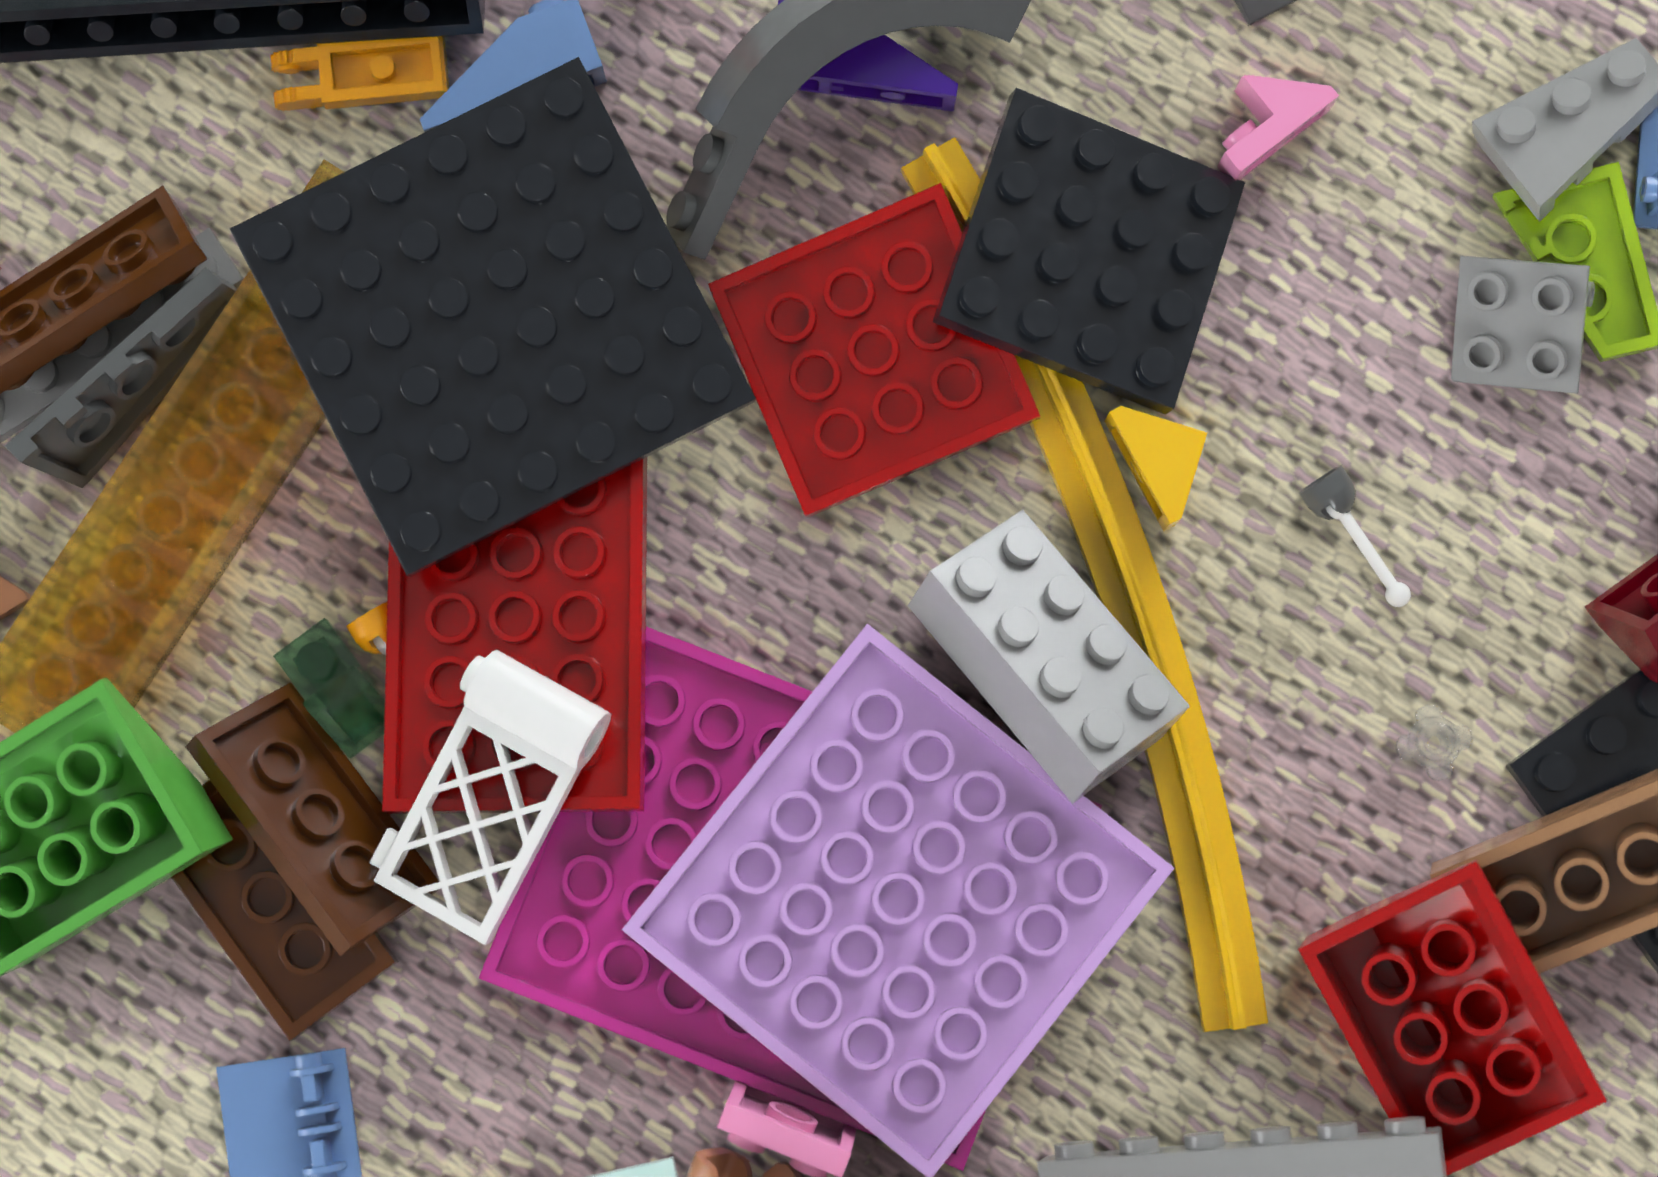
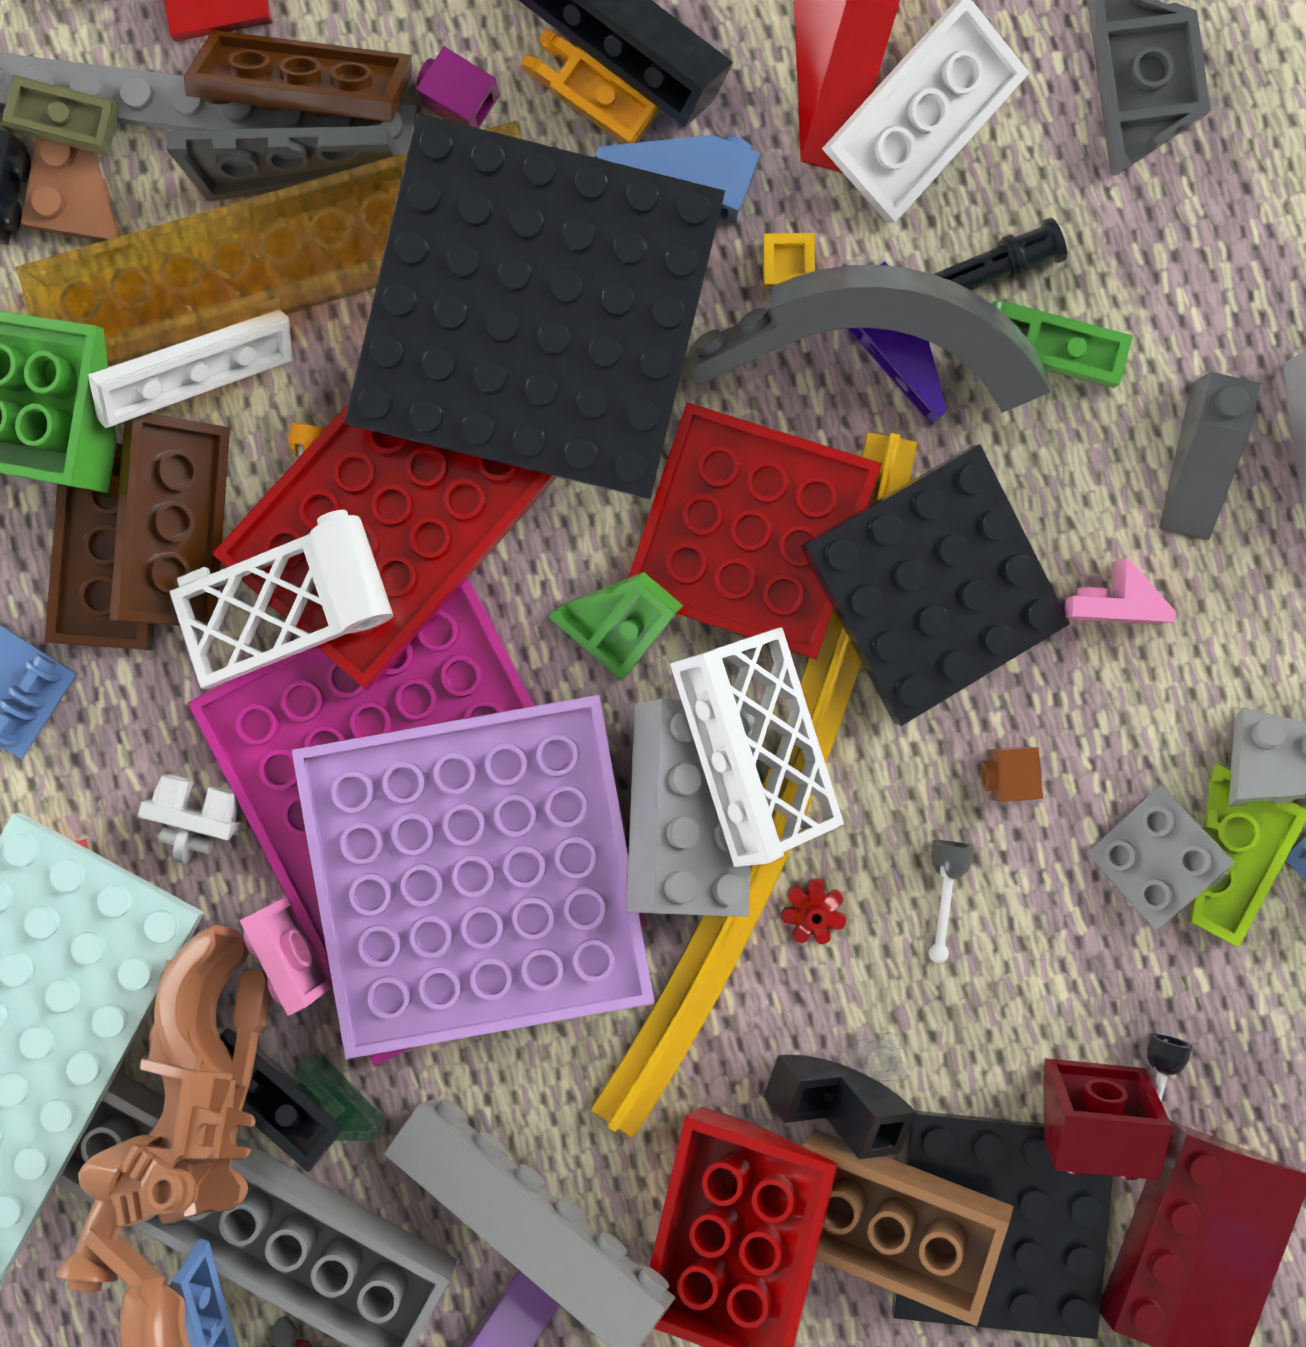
camera: 40 degrees right, 5 degrees up
(214, 649) = (190, 368): none -> white tile
(236, 180) = (456, 89): none -> magenta brick
(335, 687) = (254, 452): clear green slope -> none
(548, 1093) = (171, 808): none -> white hips
(683, 72) = (787, 256): none -> yellow plate
(823, 542) = (619, 621): none -> bright green wing
(1042, 565) = (731, 756): none -> white fence
(1160, 458) = (867, 748): yellow slope -> none
(1235, 659) = (810, 903): none -> red plant
(1316, 365) = (1012, 774): none -> dark orange plate
(1447, 803) = (857, 1106): none -> black brick

